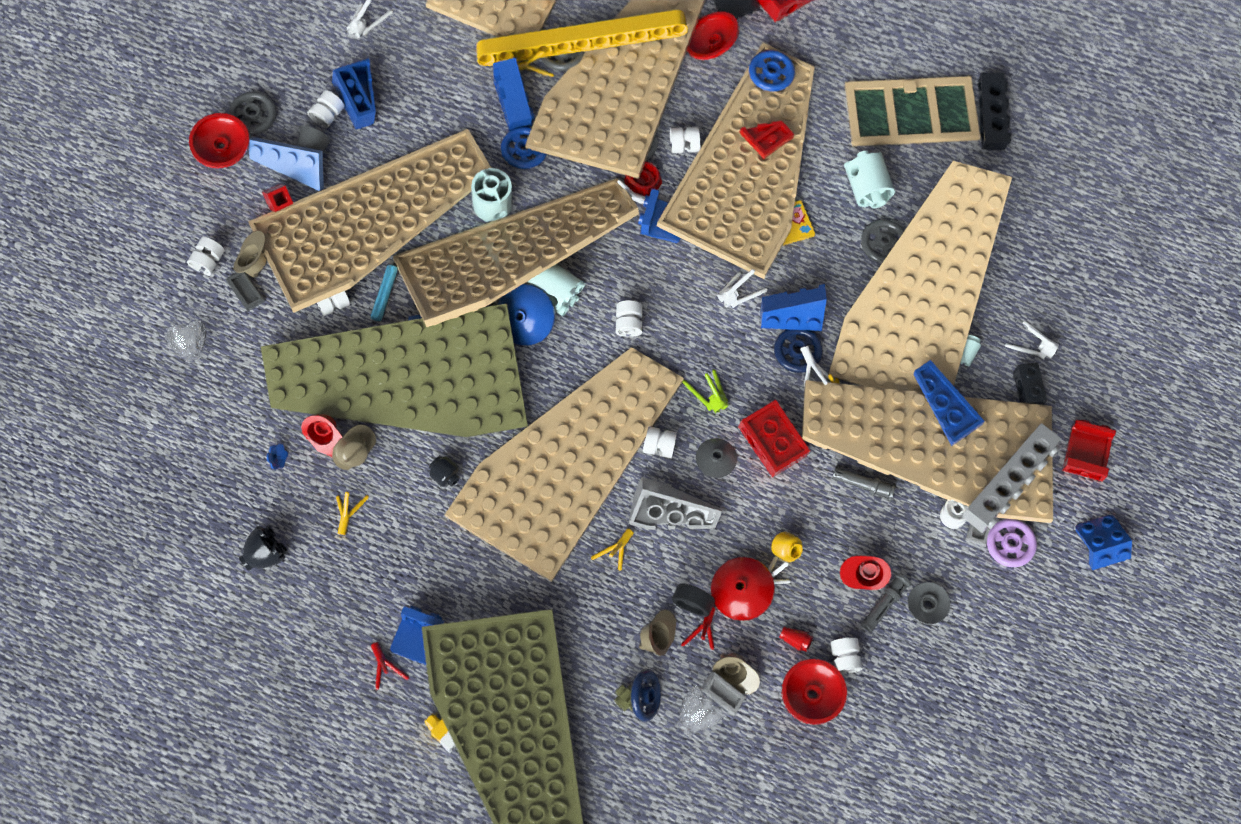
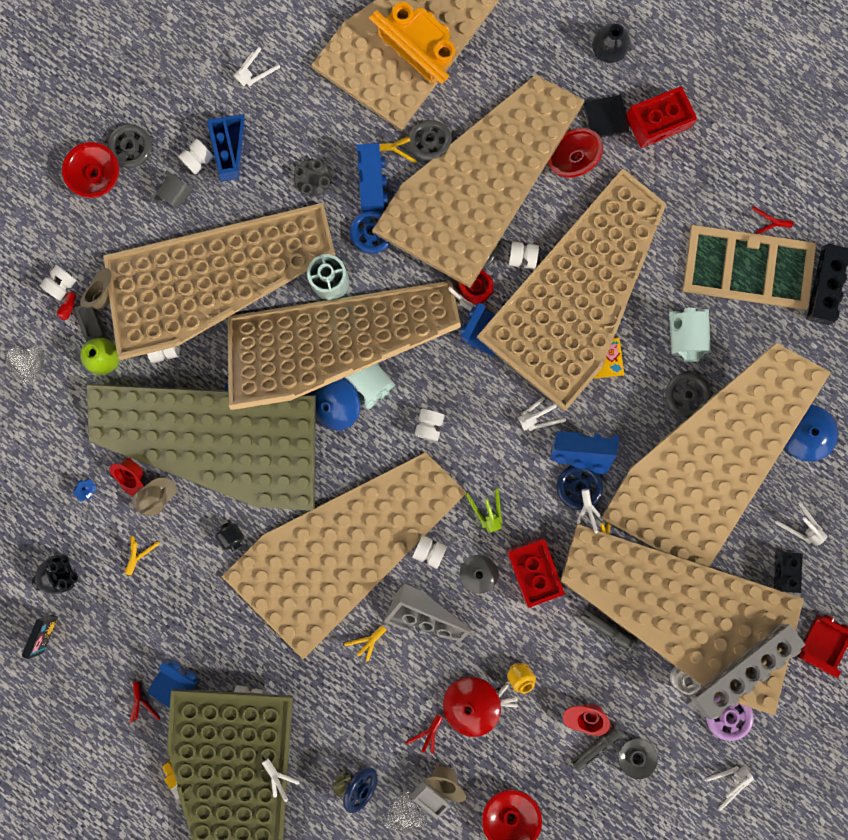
camera: 25 degrees right, 15 degrees up
(218, 280) = (66, 308): none -> red arm
(262, 610) = (39, 636): none -> black tile
(265, 320) = (105, 358): none -> lime piece
(277, 197) = (132, 238): red brick -> none
(291, 160) = (152, 203): wing -> none
(384, 293) = (212, 351): medium azure axle -> none
(450, 108) = (312, 177): none -> dark grey dish
(550, 691) = (275, 781): none -> white plant
(583, 37) = (451, 131): yellow beam -> none
(659, 633) = (385, 733): dark tan piece -> none
(693, 599) = (423, 710): black tyre -> none
(767, 137) = (602, 270): red wing -> none
(776, 57) = (631, 187): blue plate -> none
(797, 638) = (509, 763): red cone -> none
(846, 653) = (549, 795): white wheel -> none
(926, 64) = (775, 222): none -> red plant
(949, 406) = (706, 584): blue wing -> none
(971, 348) = (742, 523): light aqua cone -> none
(1013, 263) = (804, 444): none -> blue dish
(1039, 601) = (741, 777): none -> white plant
(1105, 540) = (817, 734): blue bracket -> none

